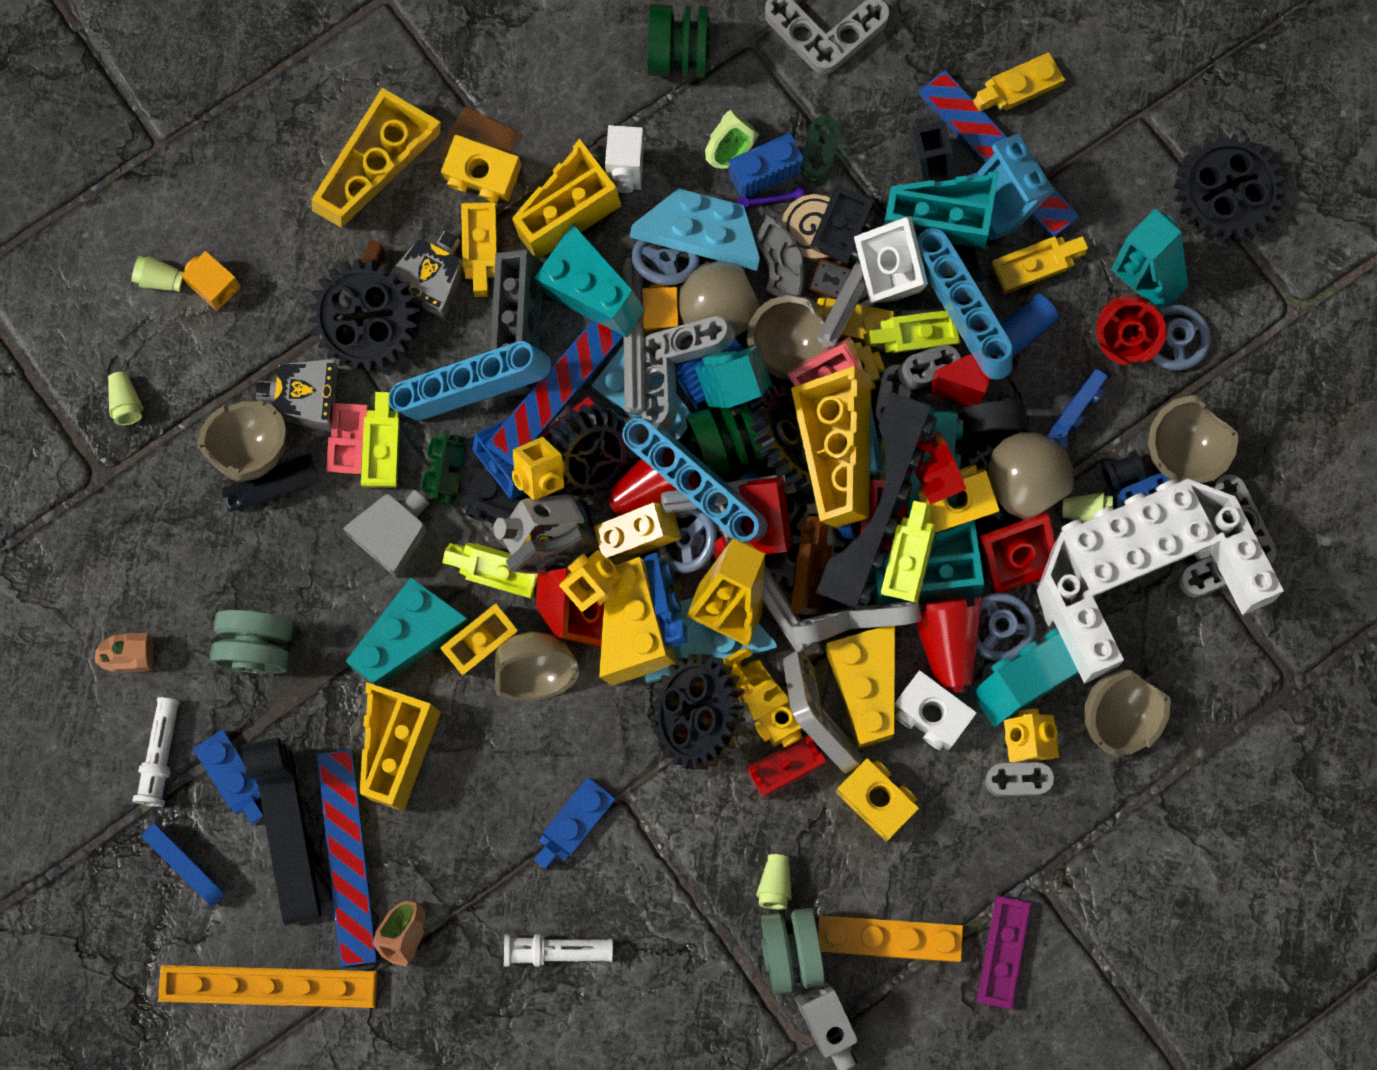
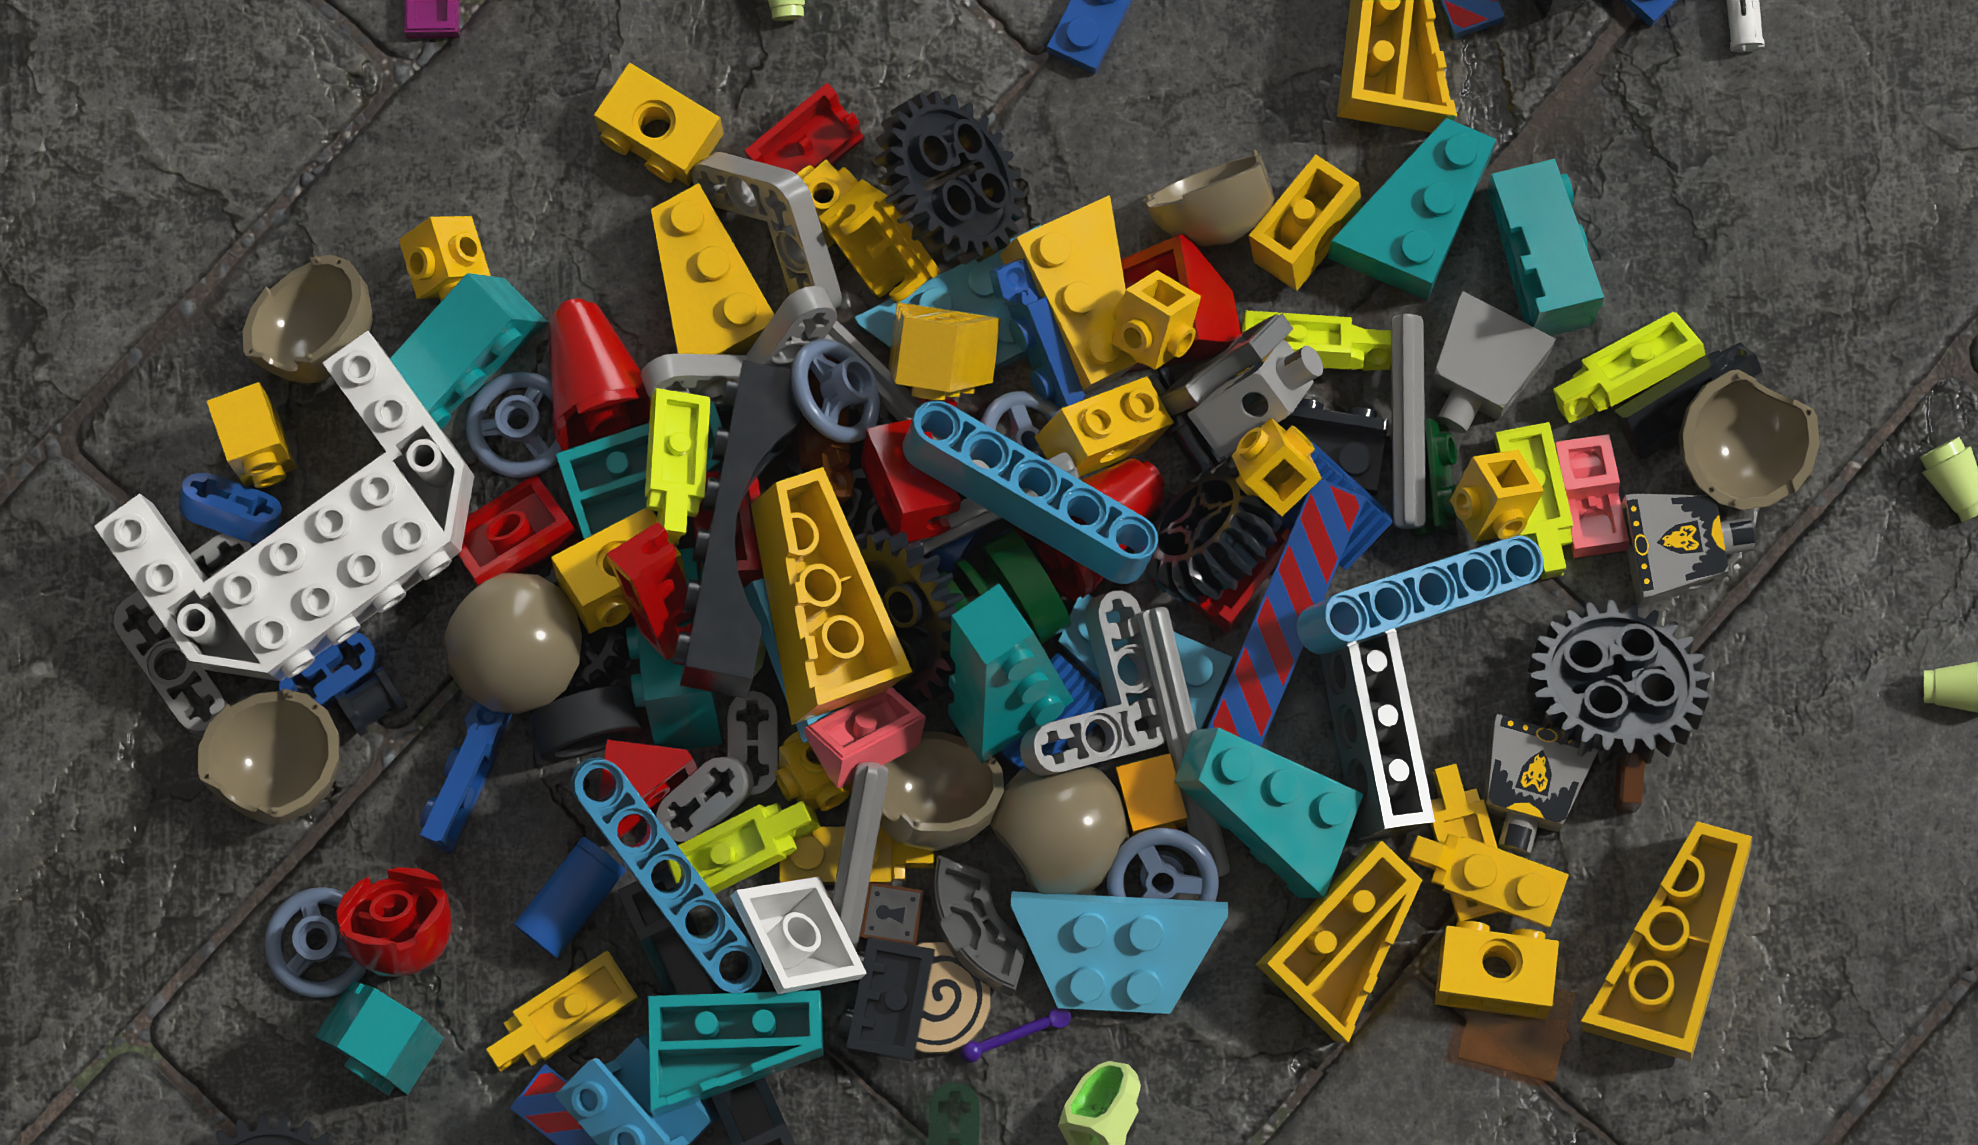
camera: 170 degrees right, 0 degrees up
(126, 653) = (1830, 100): nougat rock -> none
(210, 280) = (1879, 694): light orange brick -> none
(251, 642) = (1645, 139): sand green wheel -> none
(300, 509) = (1629, 367): none -> neon yellow hinge
(333, 590) = (1545, 247): none -> teal wedge
(407, 434) = (1496, 495): none -> yellow brick
(447, 499) = (1408, 421): none -> light grey axle
(469, 218) = (1492, 877): none -> yellow hinge
(625, 157) = (1266, 1026): white brick -> none
(765, 166) = (1036, 1076): blue brick -> none
(797, 579) = (840, 386): none -> sand blue piece
(924, 692) = (619, 294): white brick -> none
(1019, 788) = (452, 191): light grey beam -> none
(1085, 506) = (411, 630): yellowish green cone -> none
(1173, 643) = (252, 436): none -> yellow brick
(1193, 609) = (229, 507): none -> blue beam

